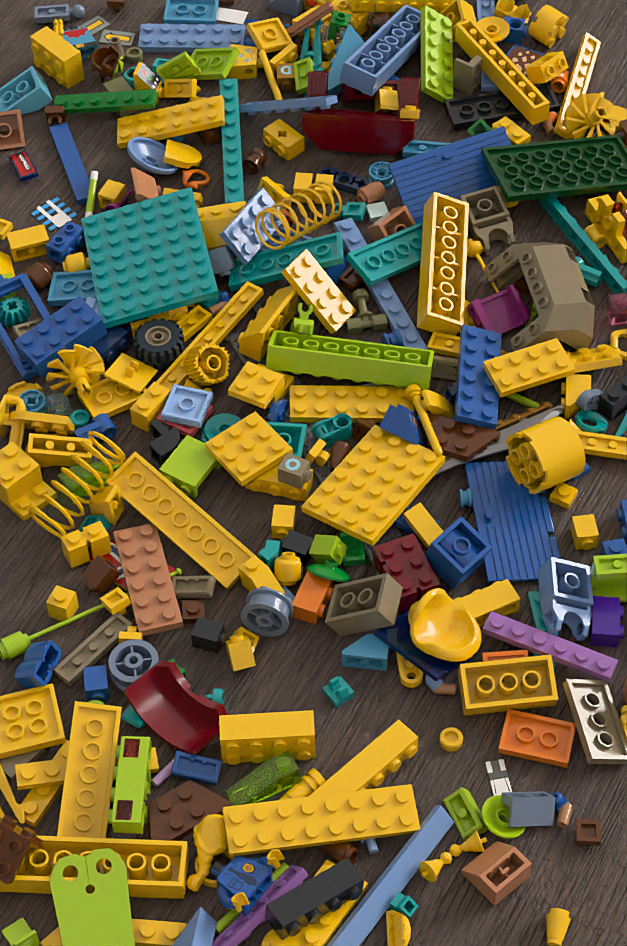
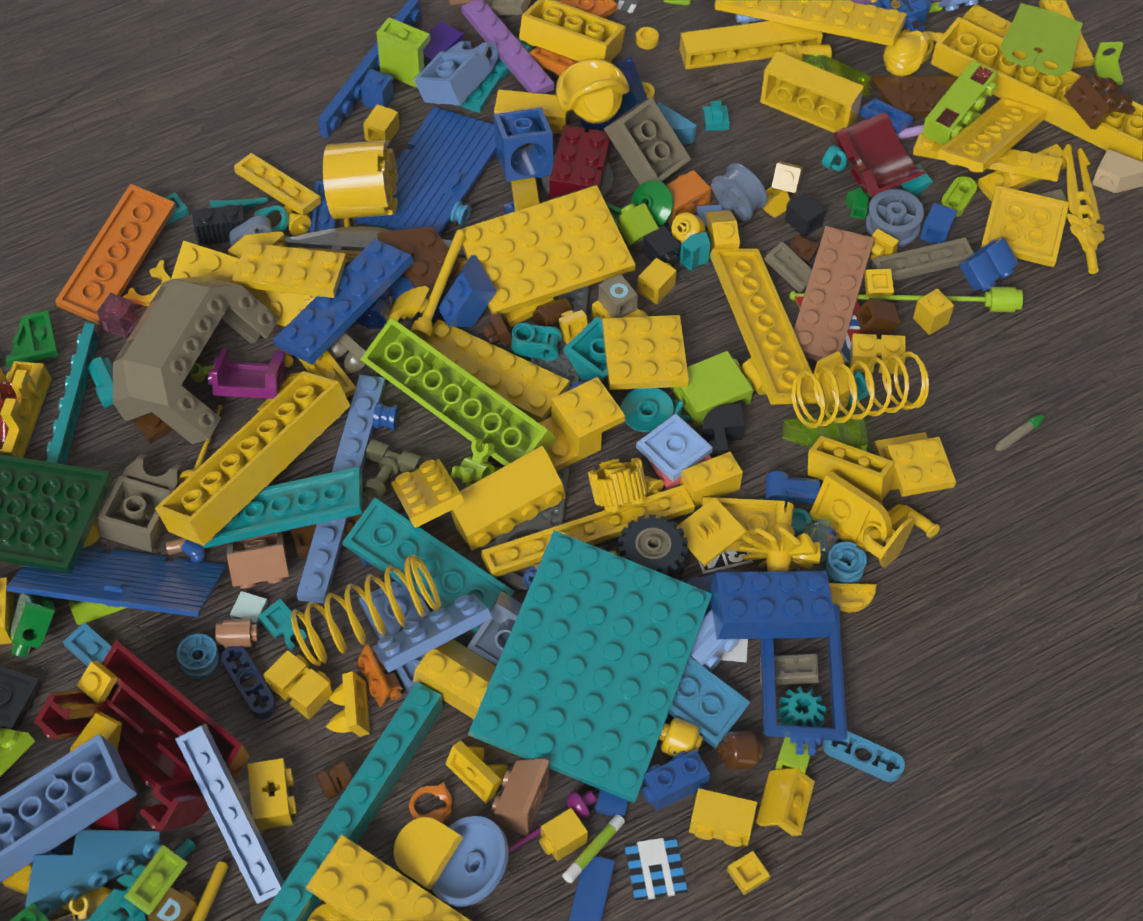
camera: 150 degrees left, 5 degrees up
(596, 236) = (45, 418): yellow bush -> none

